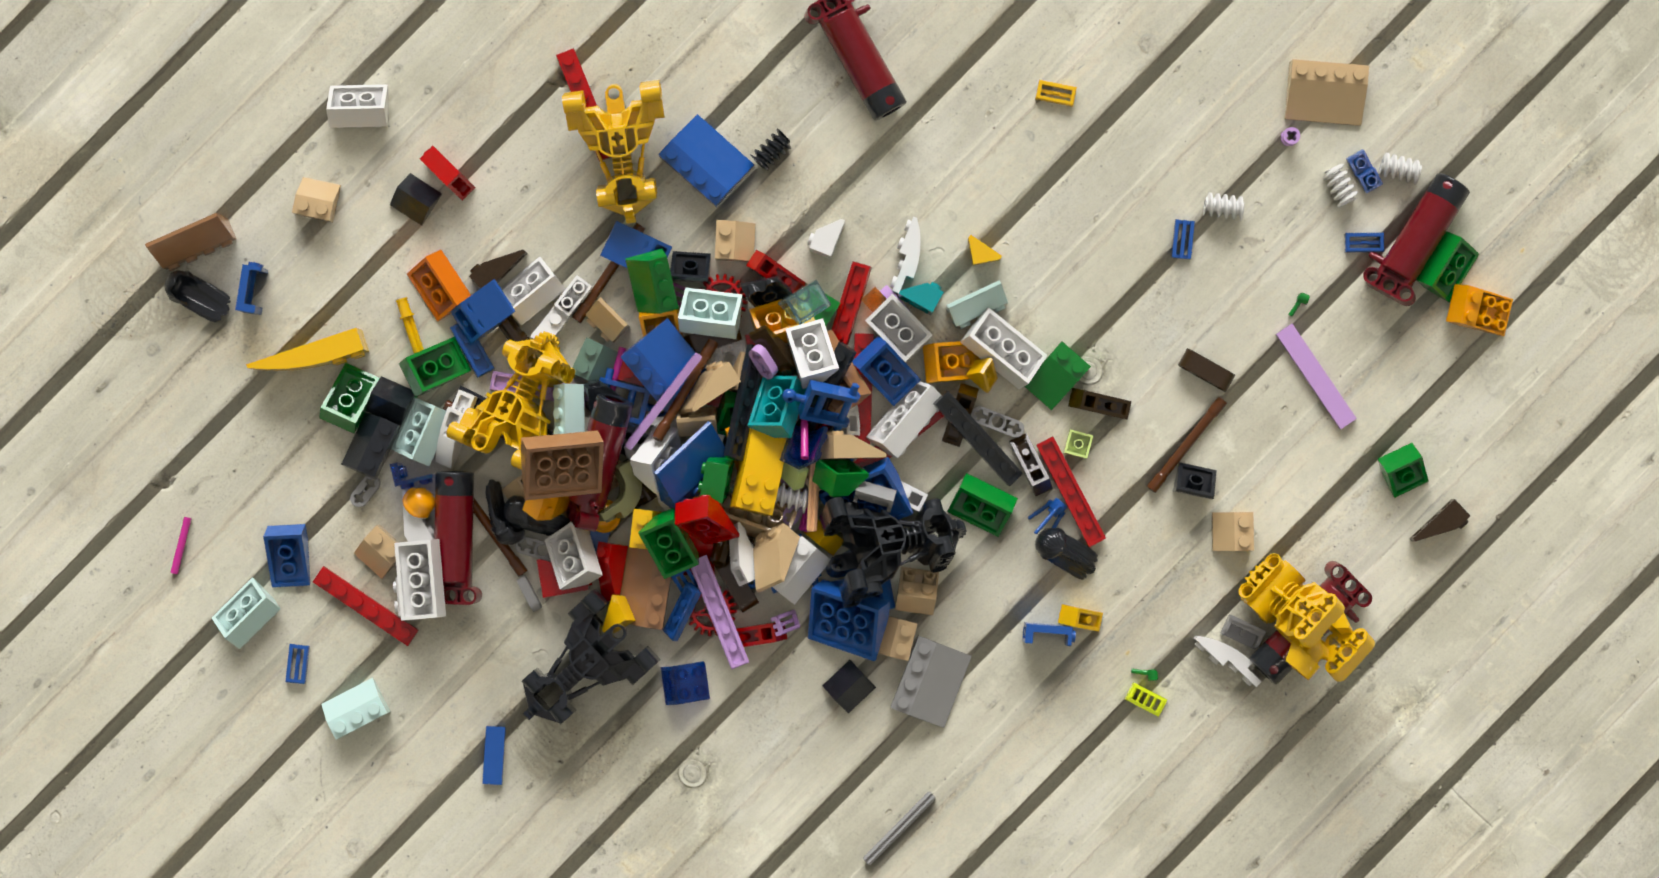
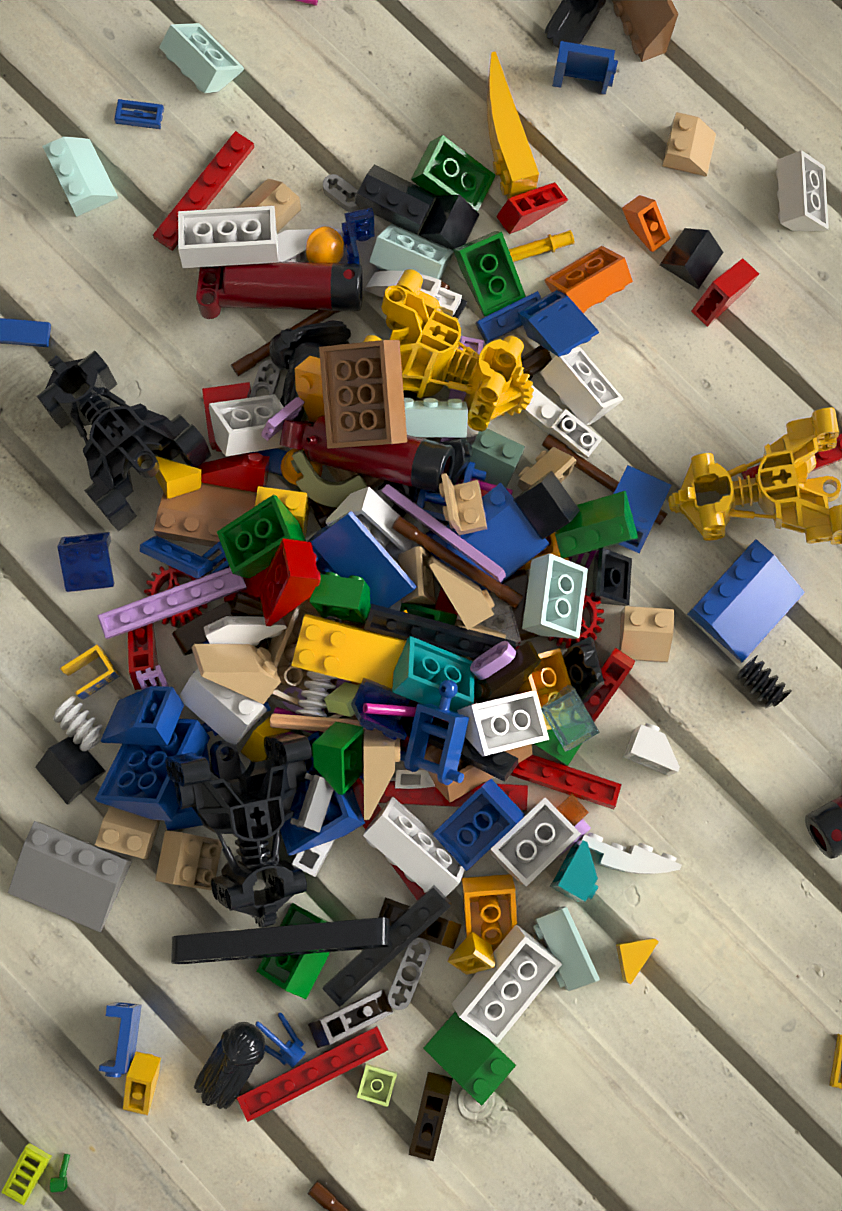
camera: 85 degrees right, 10 degrees down
(287, 555) = (268, 103): blue slope -> none
(375, 332) = (530, 207): none -> red slope
(387, 237) = (646, 222): none -> orange slope
(496, 268) = (609, 347): dark brown slope -> none
(529, 593) = (209, 375): light grey beam -> none
(572, 530) = (276, 422): none -> lavender tile
(638, 319) = (547, 505): none -> black slope
(641, 386) = (463, 506): none -> tan bracket
(757, 668) = (84, 659): none -> yellow piece
(810, 629) = (145, 717): none -> blue slope
(815, 680) = (78, 724): none -> white piece
(976, 518) = (281, 941): none -> black beam

